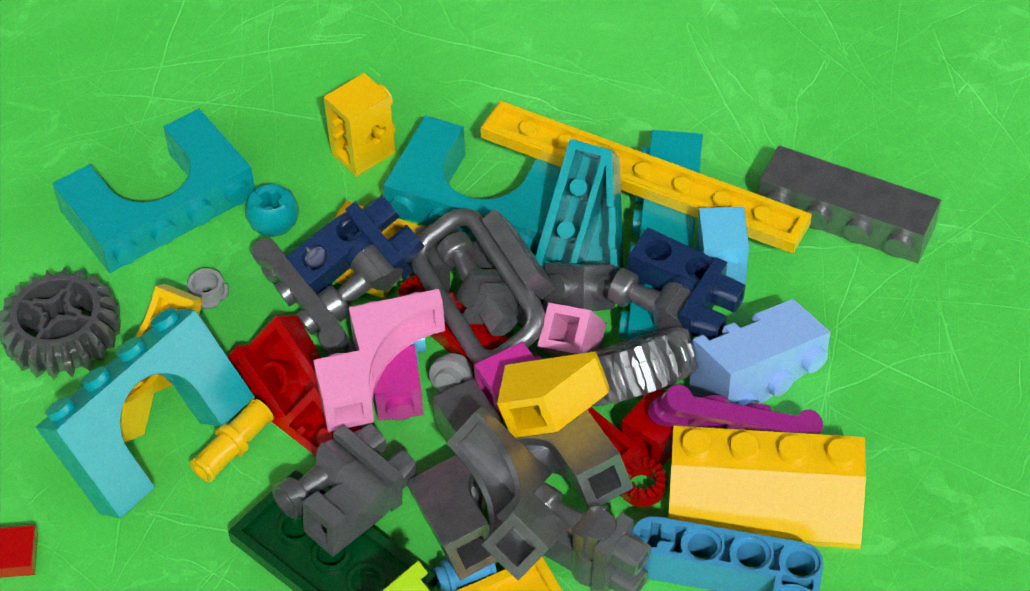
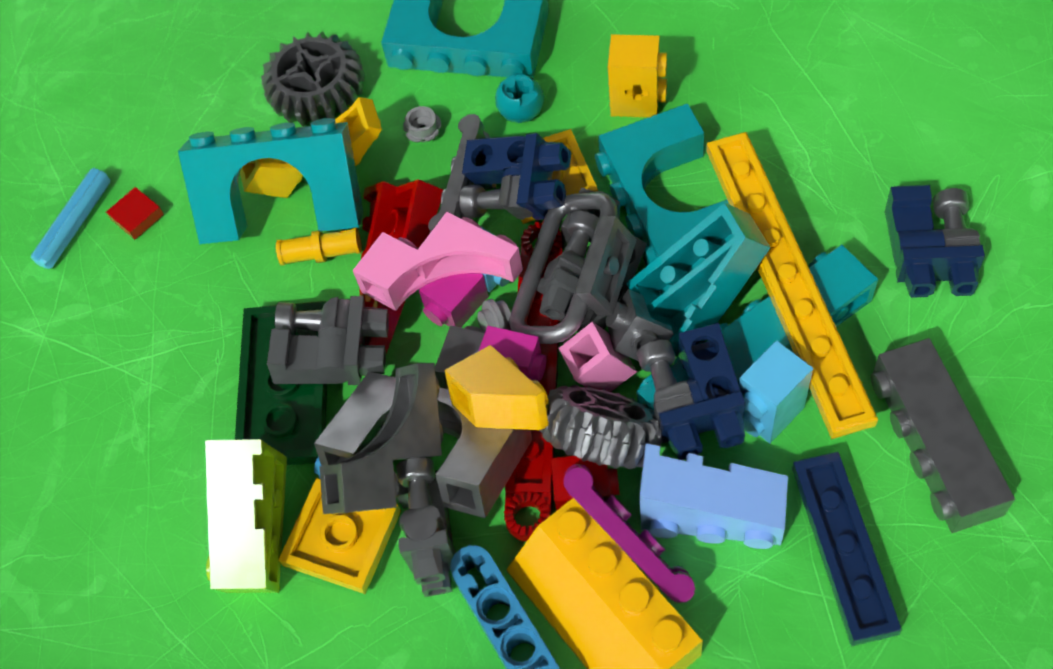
camera: 55 degrees right, 10 degrees up
(701, 103) = (931, 254): none -> dark blue hips
(873, 320) = (846, 549): none -> dark blue plate

